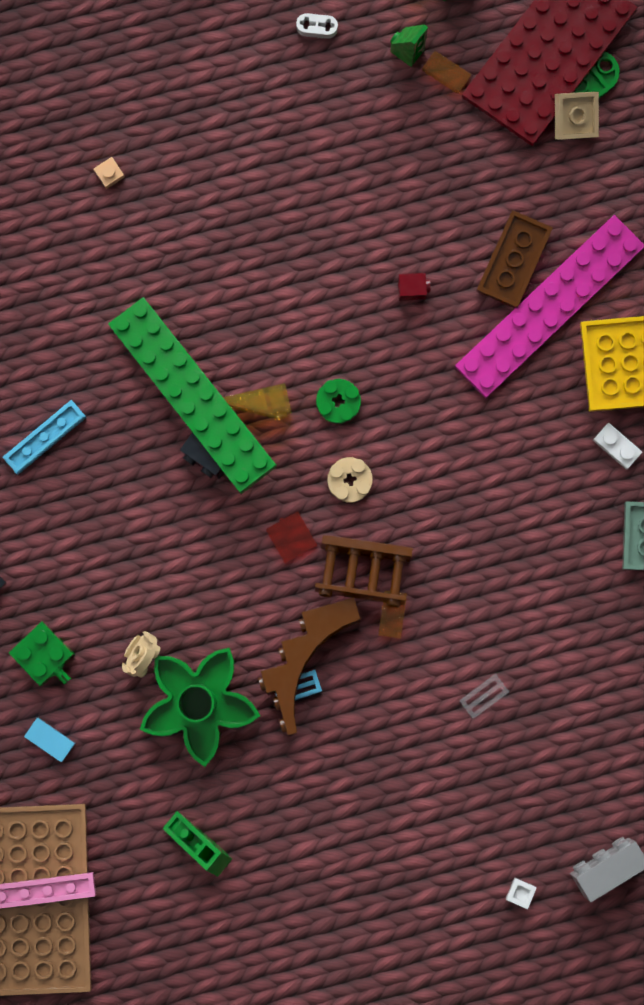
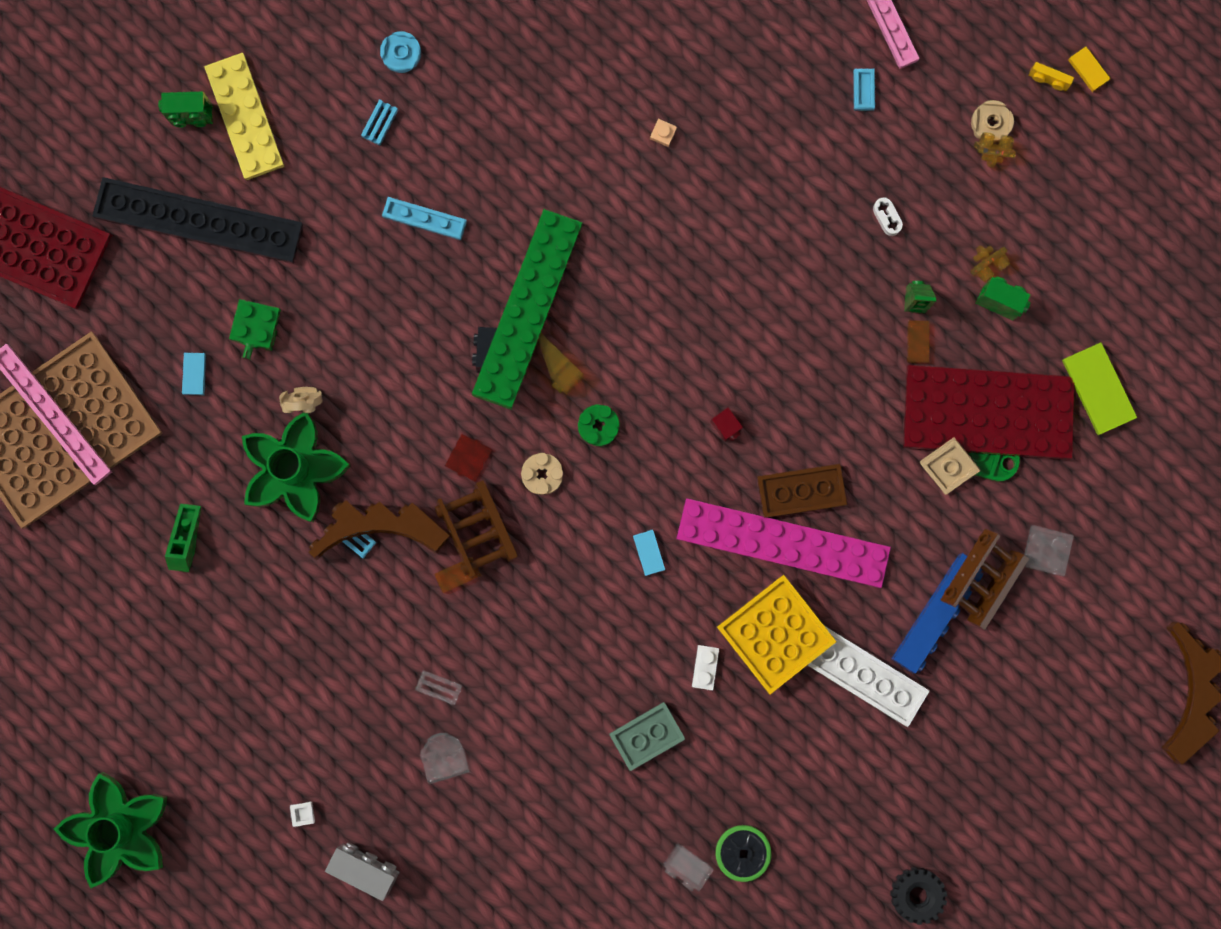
camera: 60 degrees right, 0 degrees up
(482, 430) = (649, 552): none -> medium azure tile
(551, 731) = (443, 758): none -> clear slope

